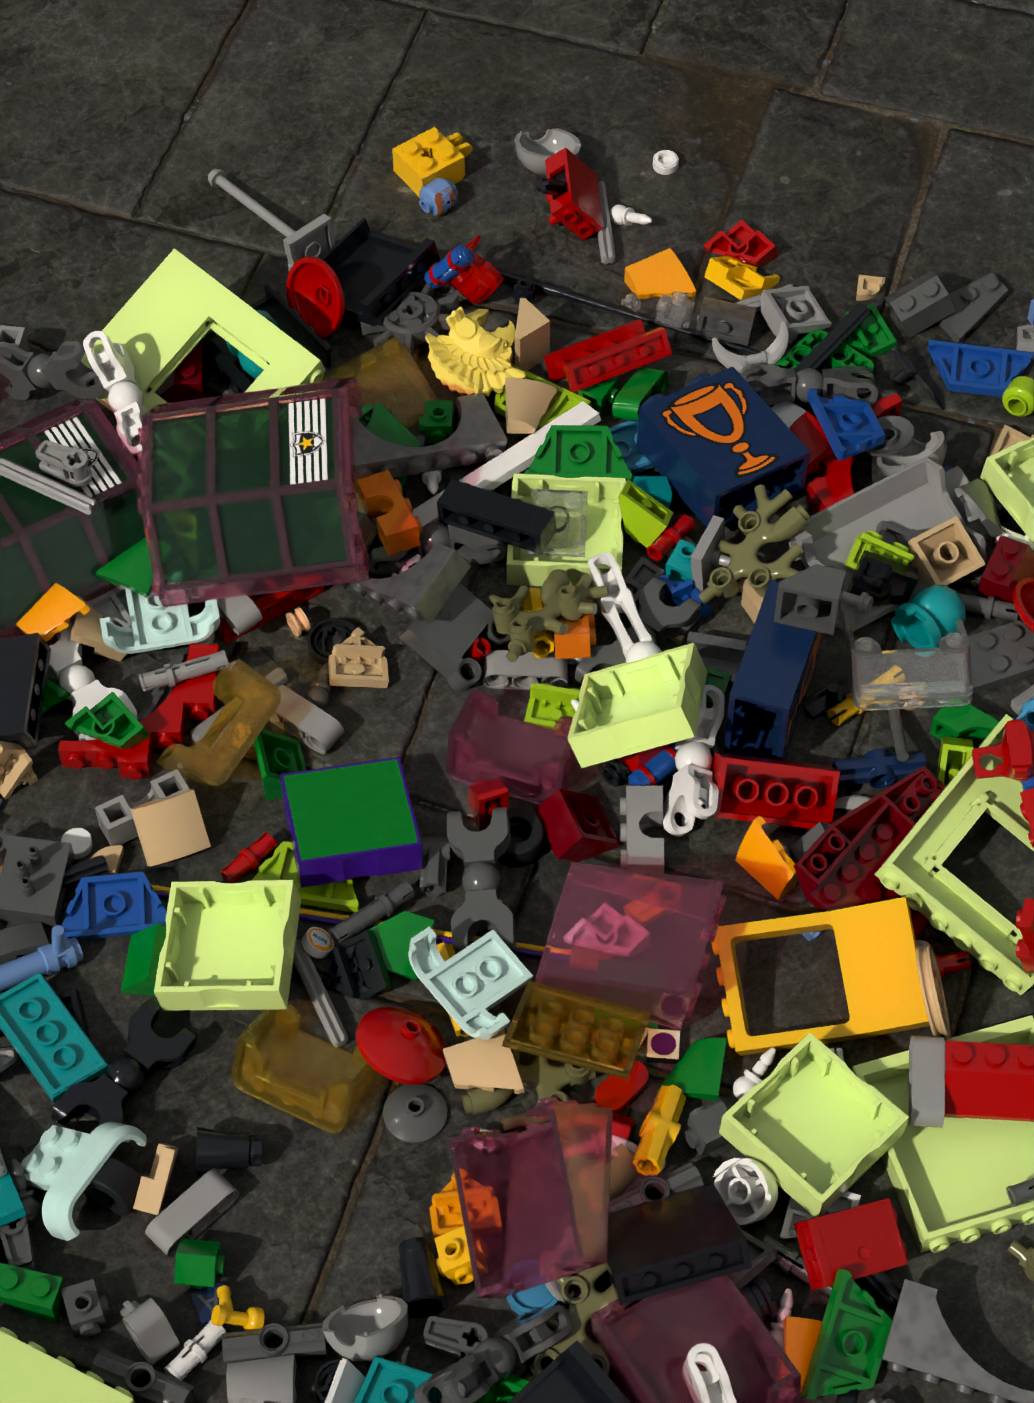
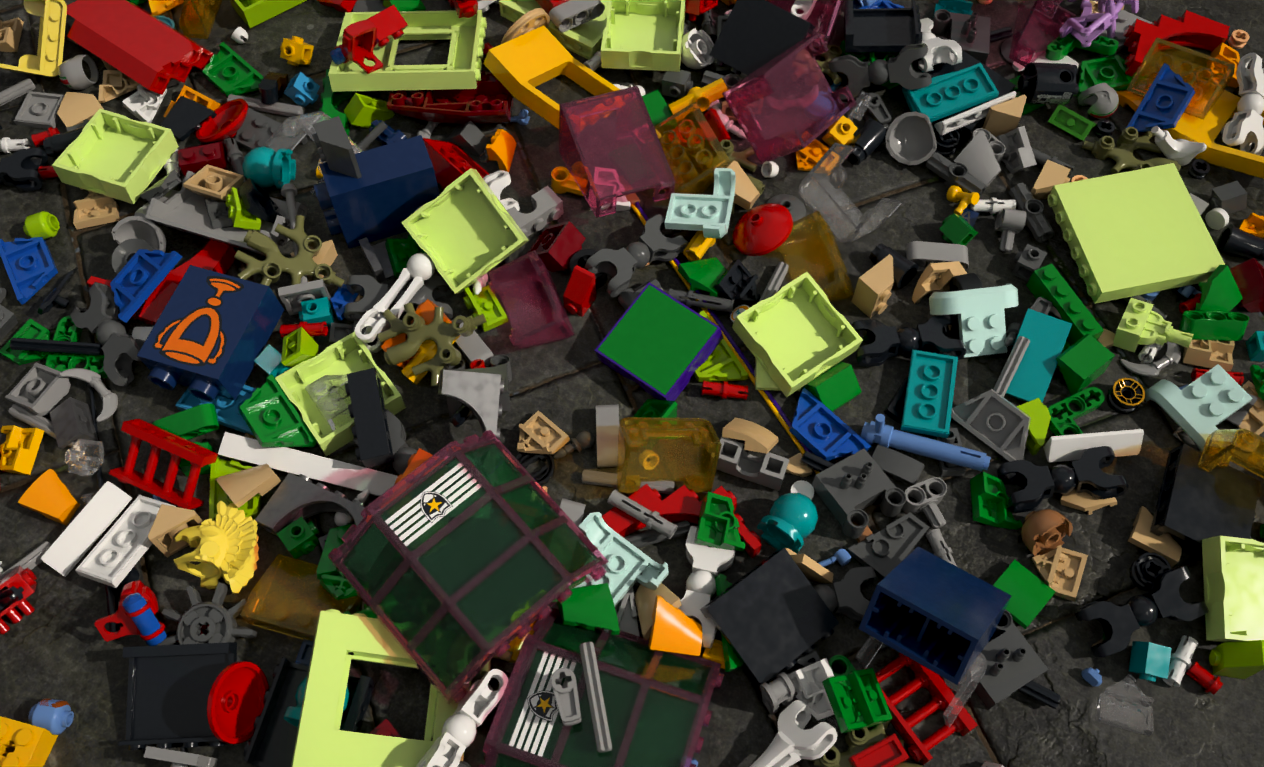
camera: 130 degrees left, 5 degrees up
(54, 790) = (789, 522): none -> teal tile
(210, 1088) = (875, 288): none -> tan slope
(358, 1169) = (823, 193): none -> clear windscreen
(475, 1309) = (858, 110): none -> clear slope
(551, 292) = (122, 544): none -> white tile
(597, 285) = (86, 528): none -> white slope

